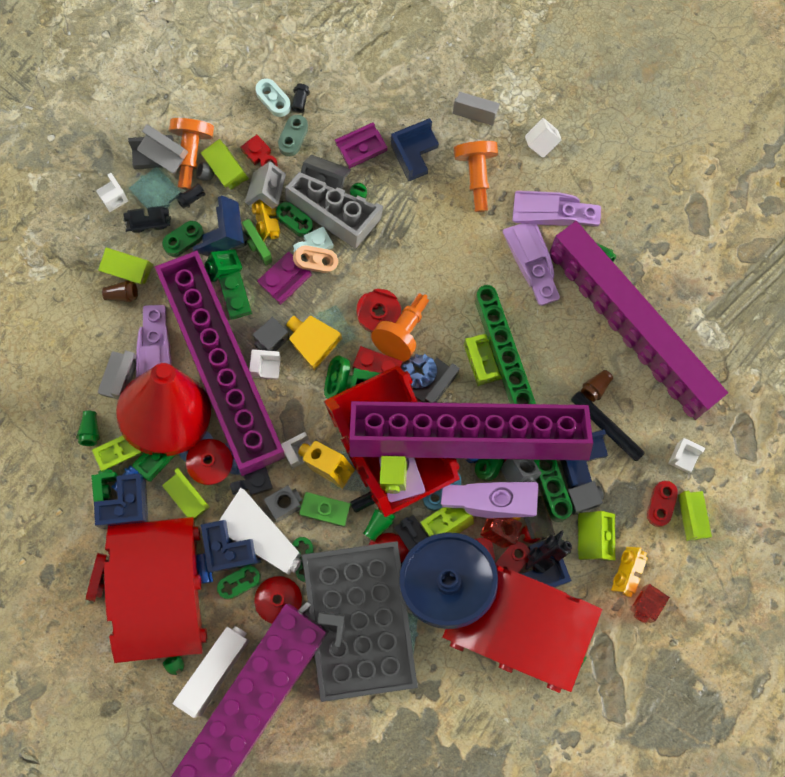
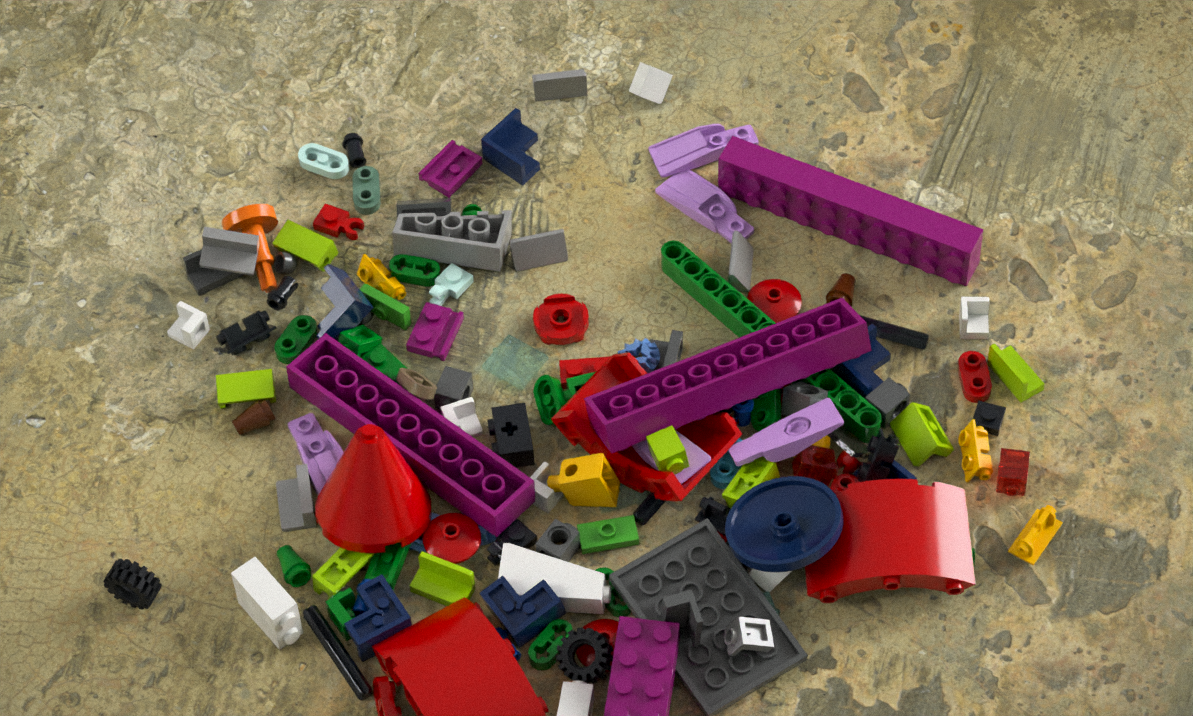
camera: 20 degrees left, 20 degrees down
(49, 457) = (267, 603): none -> white brick
(86, 515) = (337, 652): none -> black axle
(155, 189) = (234, 304): clear light blue piece -> none
(242, 609) = (572, 643): none -> black tyre
(243, 322) = (416, 384): none -> dark tan plate
(266, 185) = (363, 243): light grey panel -> none
(294, 408) = (512, 434): none -> black brick
(313, 339) = (503, 373): yellow torso -> none
(314, 259) = (457, 295): light nougat plate -> none
(378, 524) = (676, 518): green cone -> none
(378, 657) = (748, 634): none -> light grey bracket
(391, 245) = (538, 250): none -> light grey slope
(395, 338) = (596, 330): orange piece -> none
(476, 155) = (587, 123): orange piece -> none
(481, 359) = (700, 320): lime hinge -> none
(534, 324) = (740, 263): none -> light grey slope
(544, 377) = (784, 306): none -> red dish
(639, 665) = (1036, 535): none -> yellow hinge
(654, 544) = (989, 417): none -> black plate

